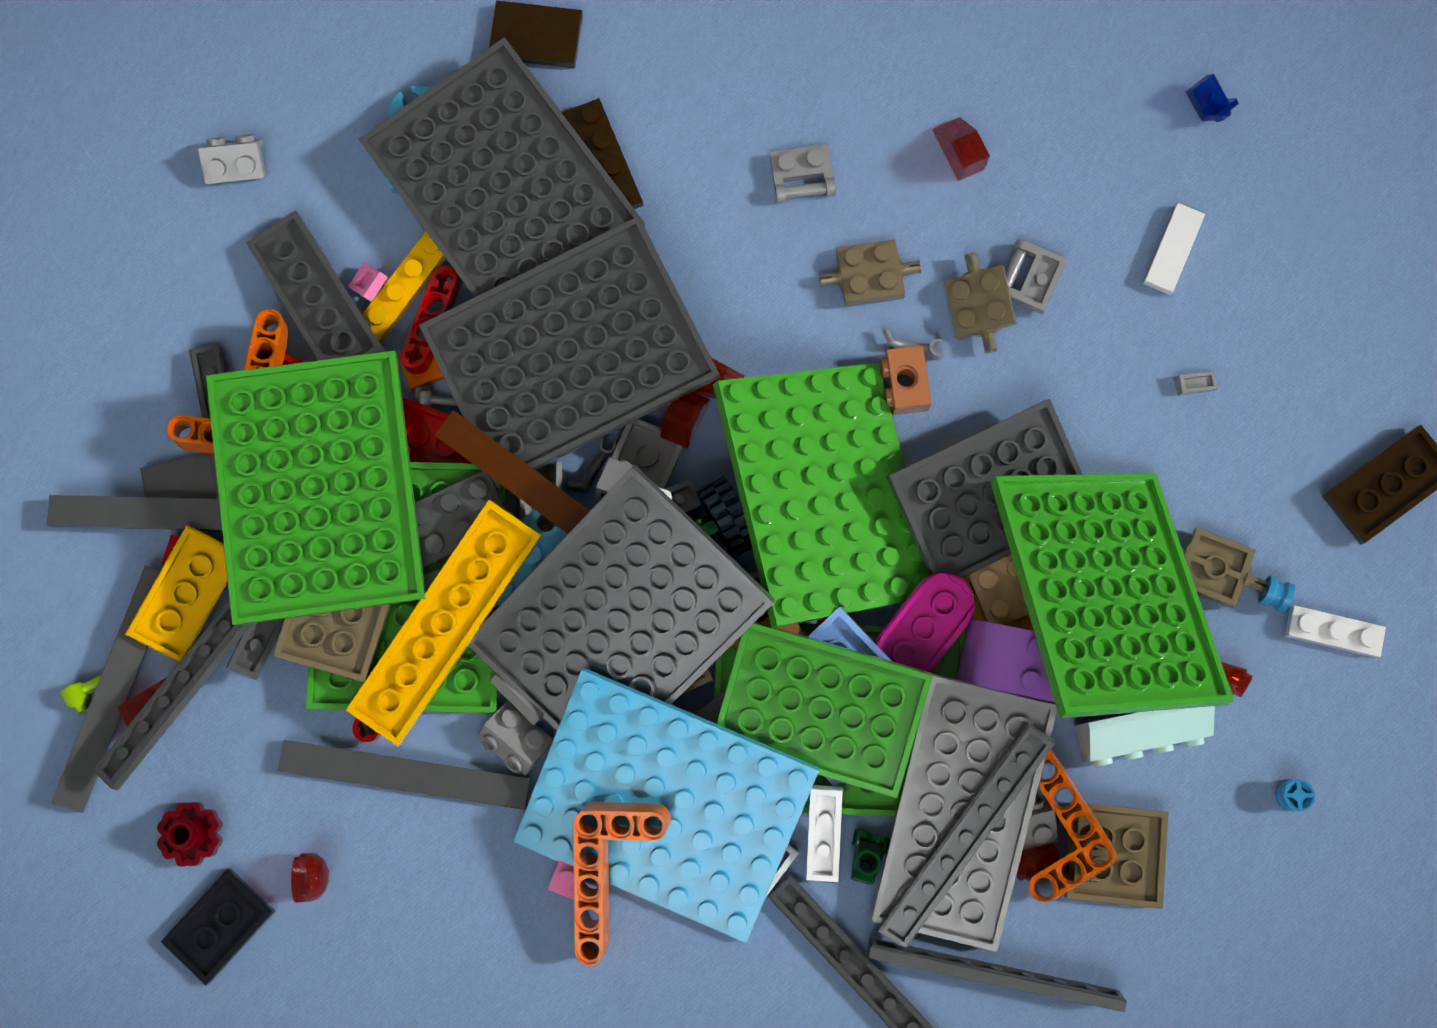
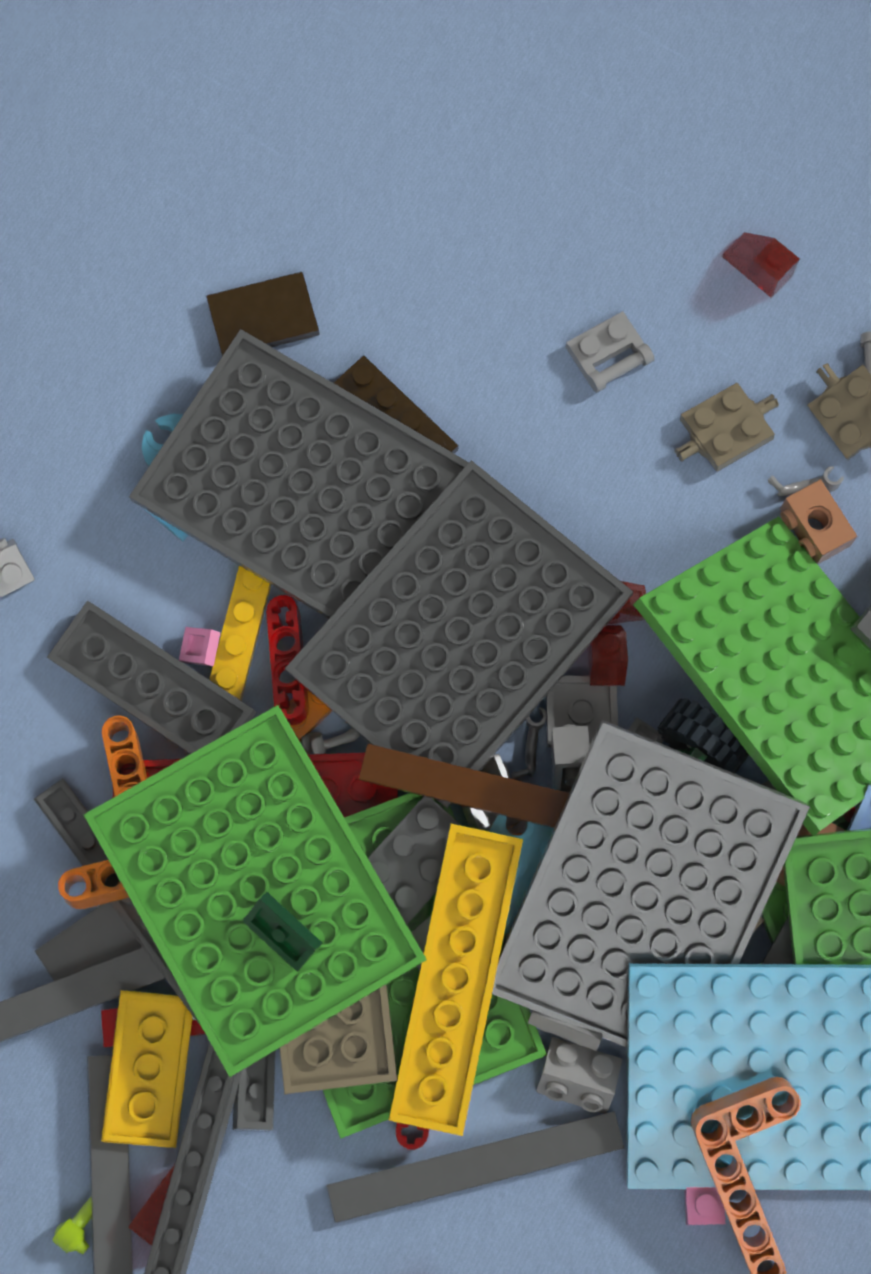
camera: 25 degrees left, 5 degrees down
(317, 529) = (282, 931): none -> dark green plate

